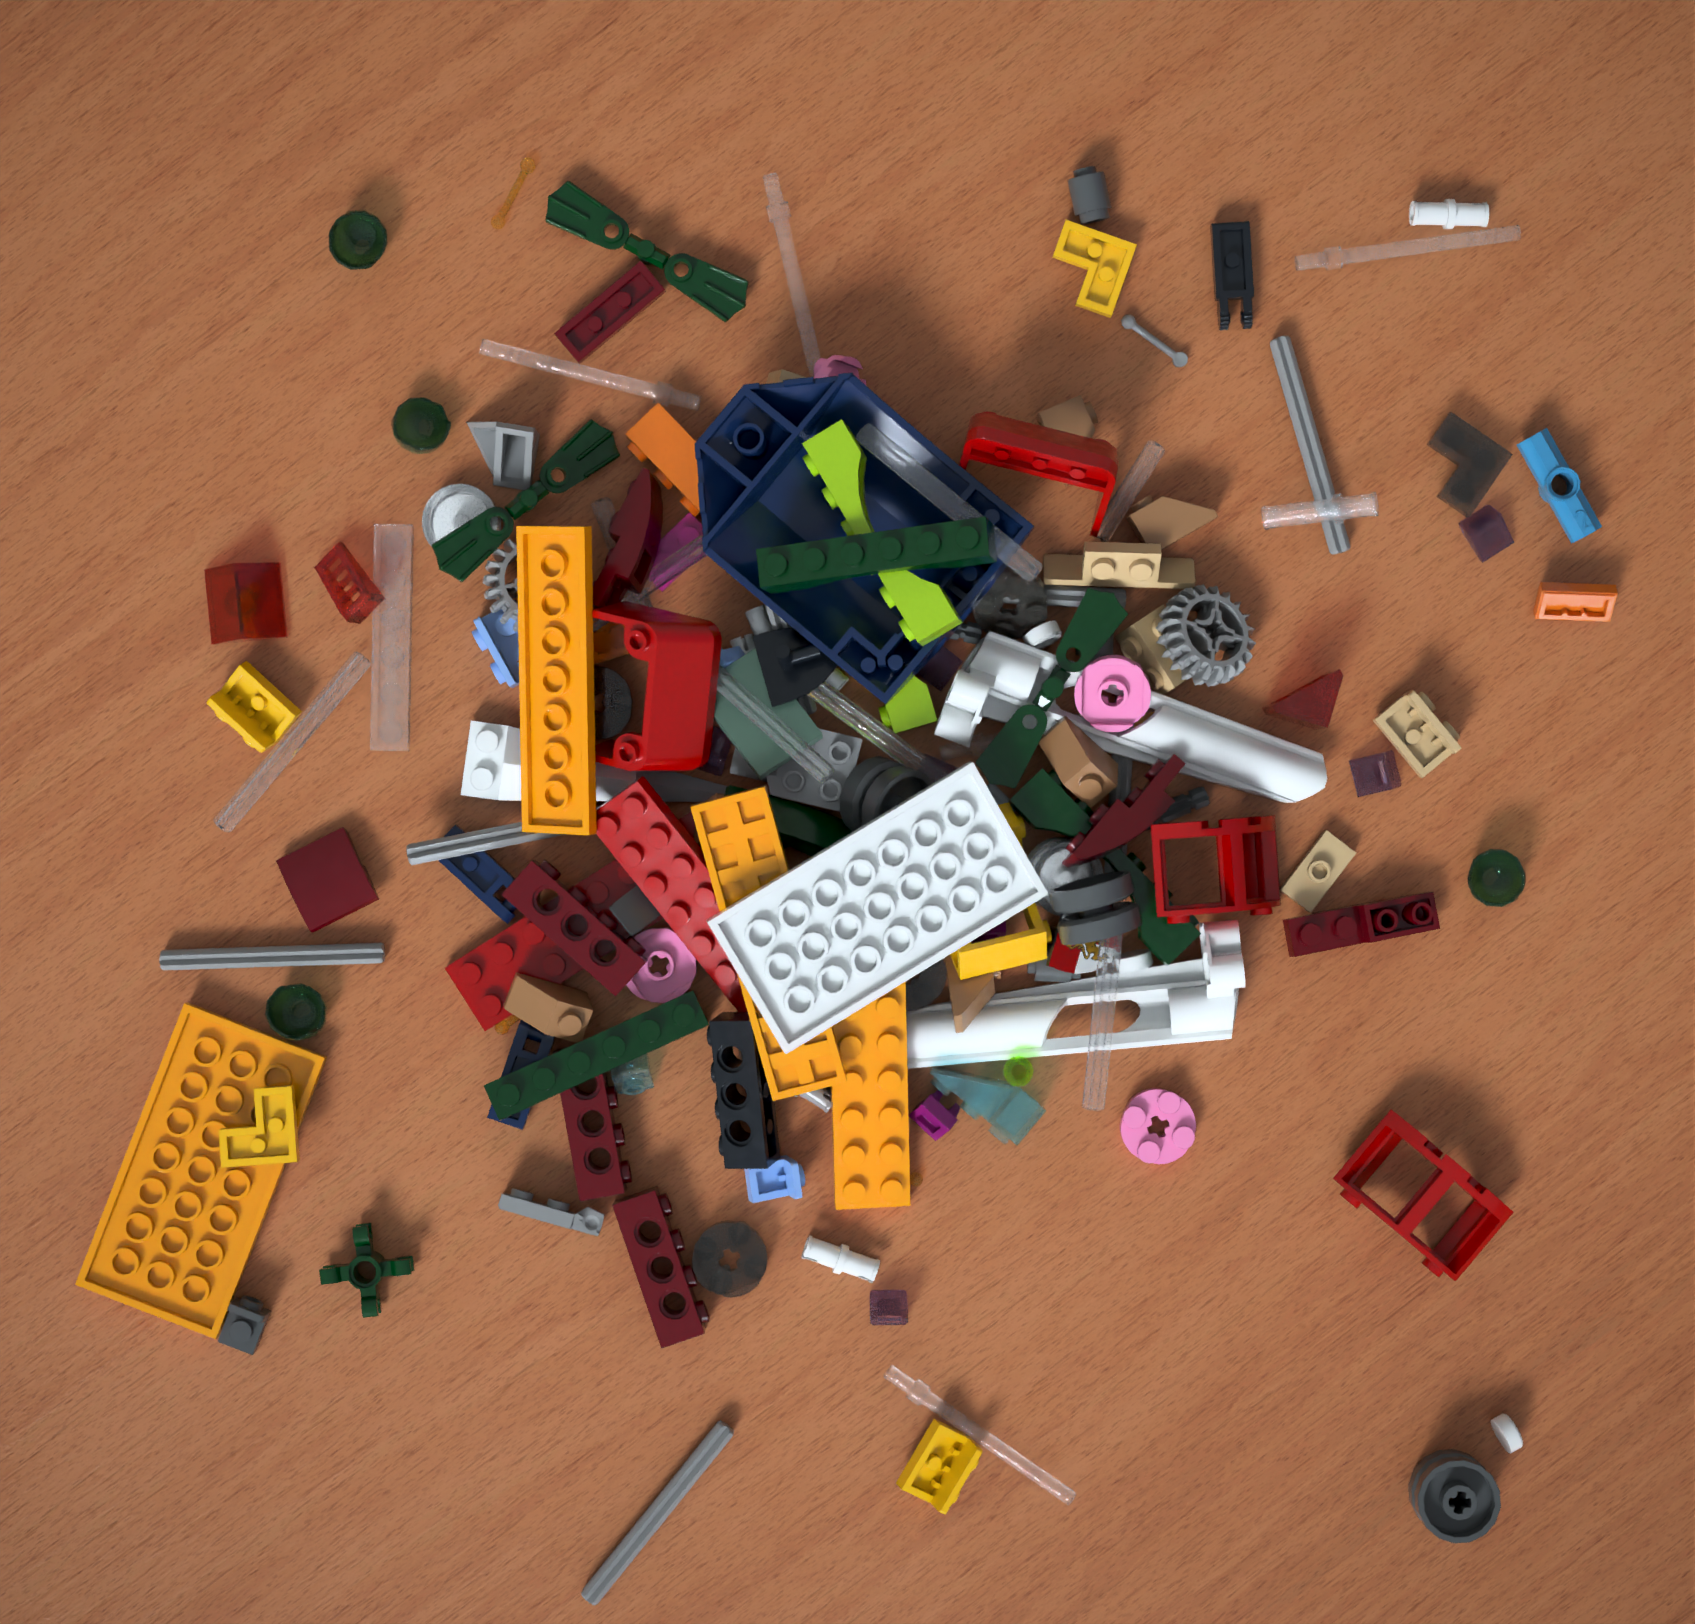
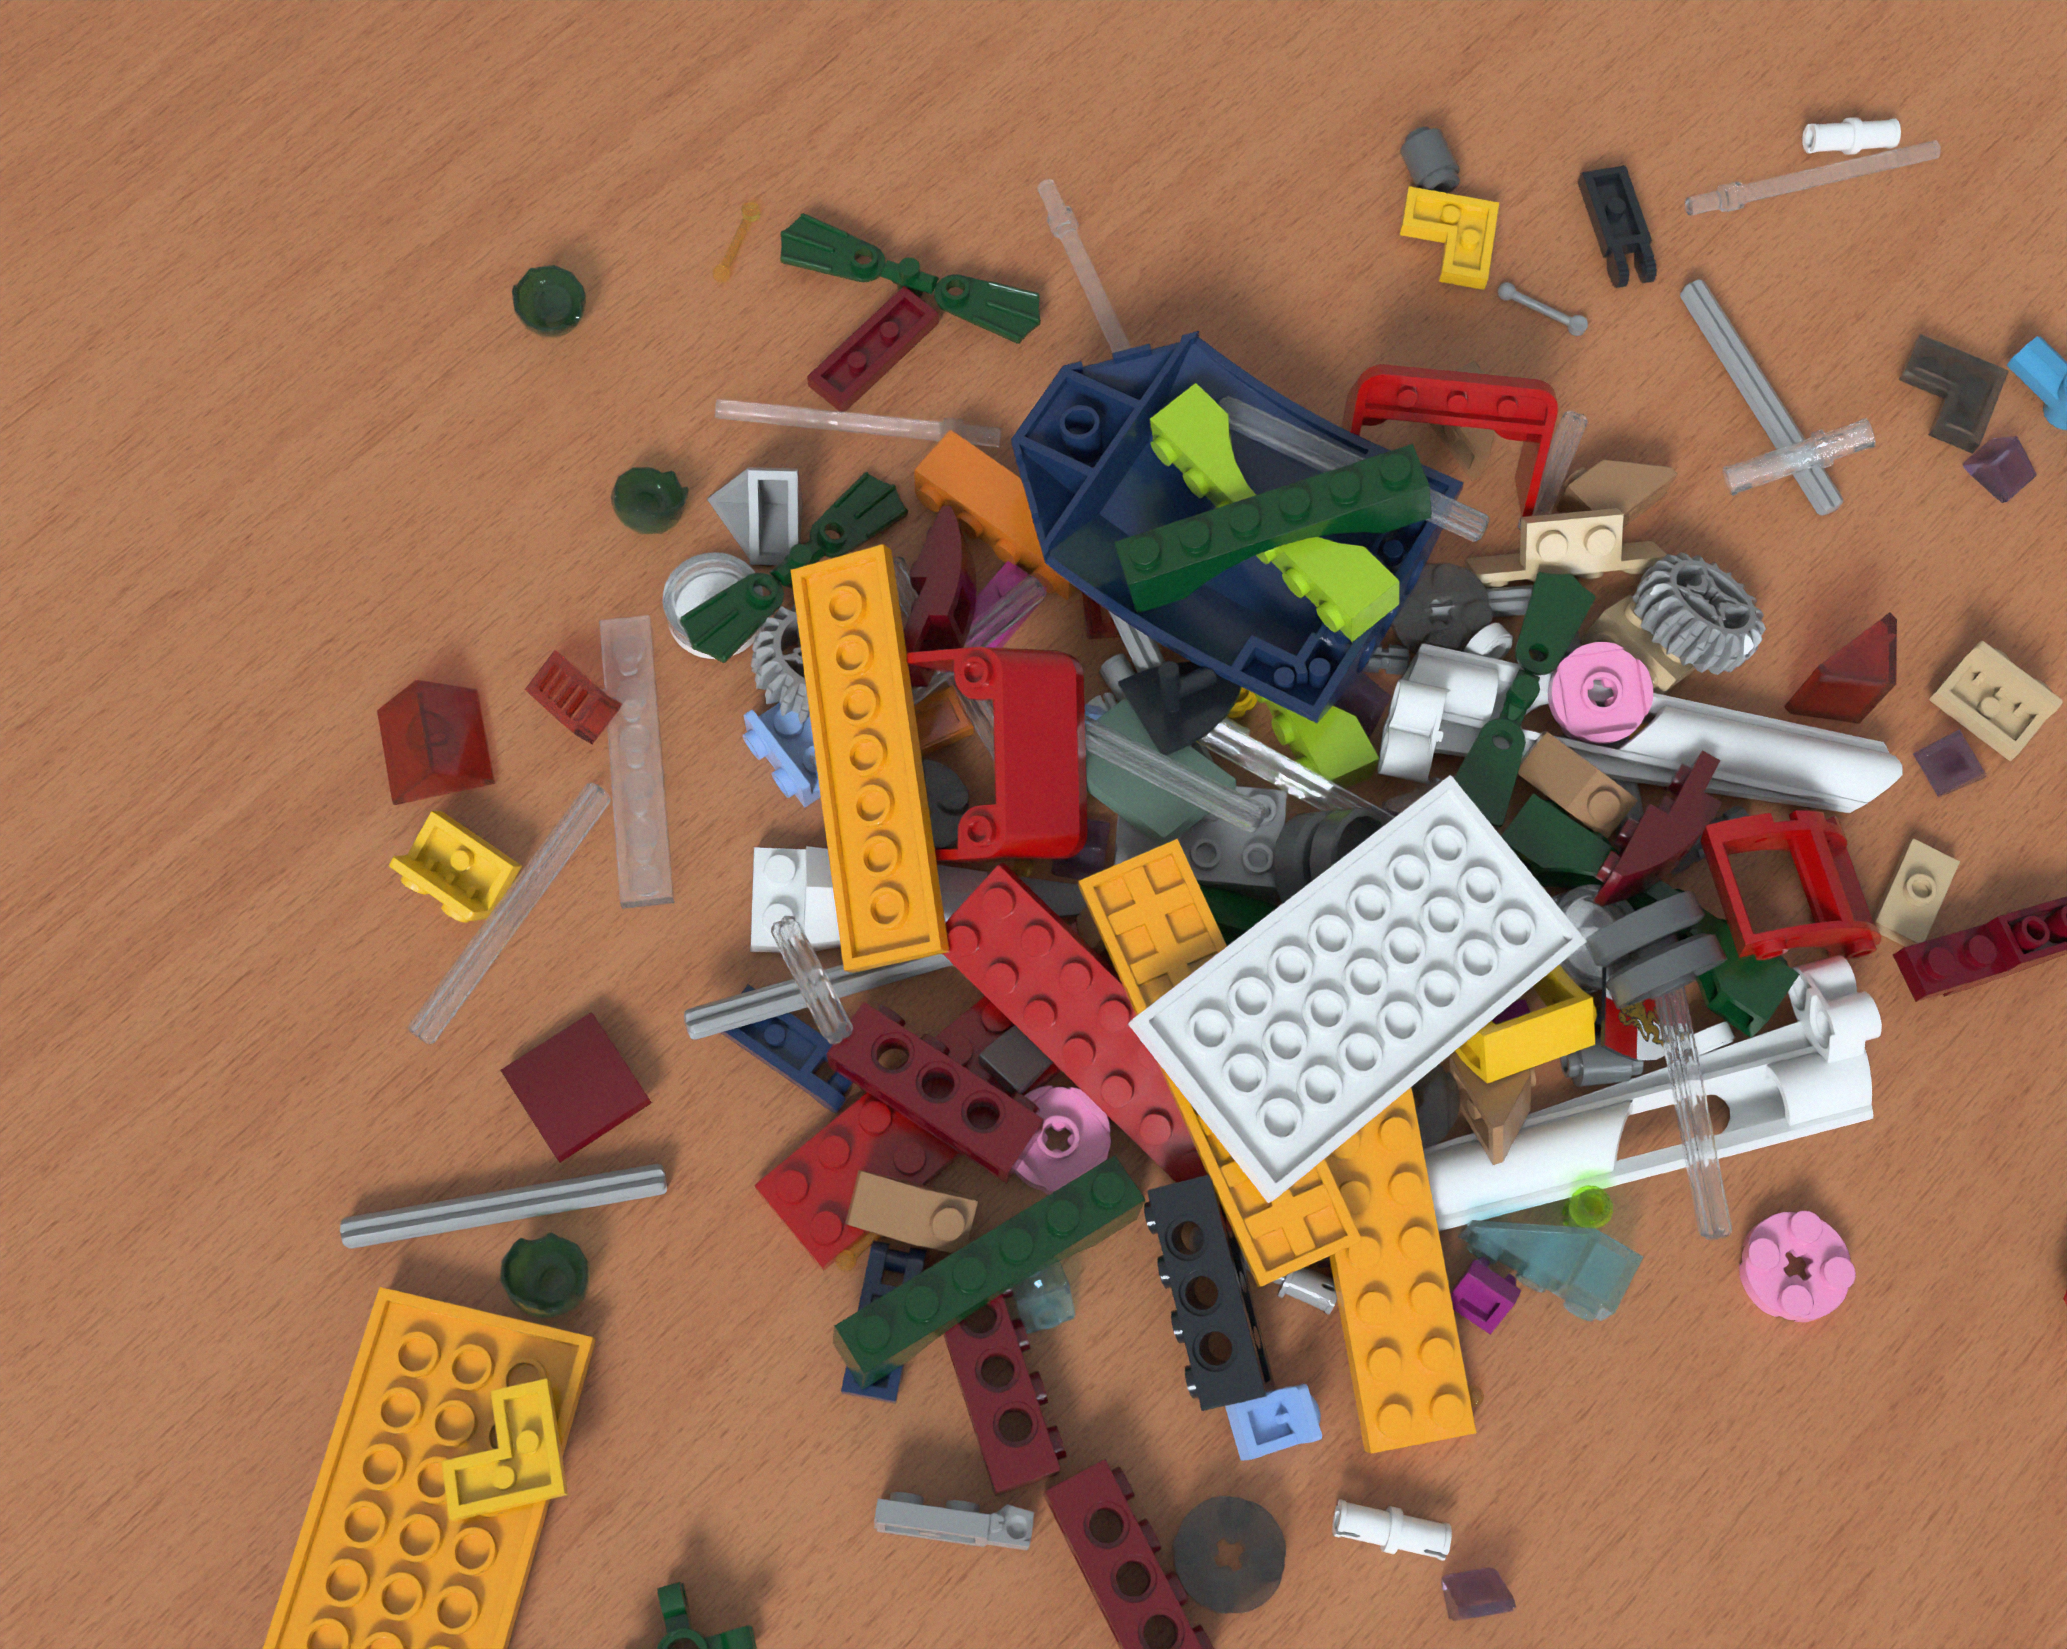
camera: 15 degrees left, 20 degrees down
(497, 836) = (811, 980): none -> clear axle

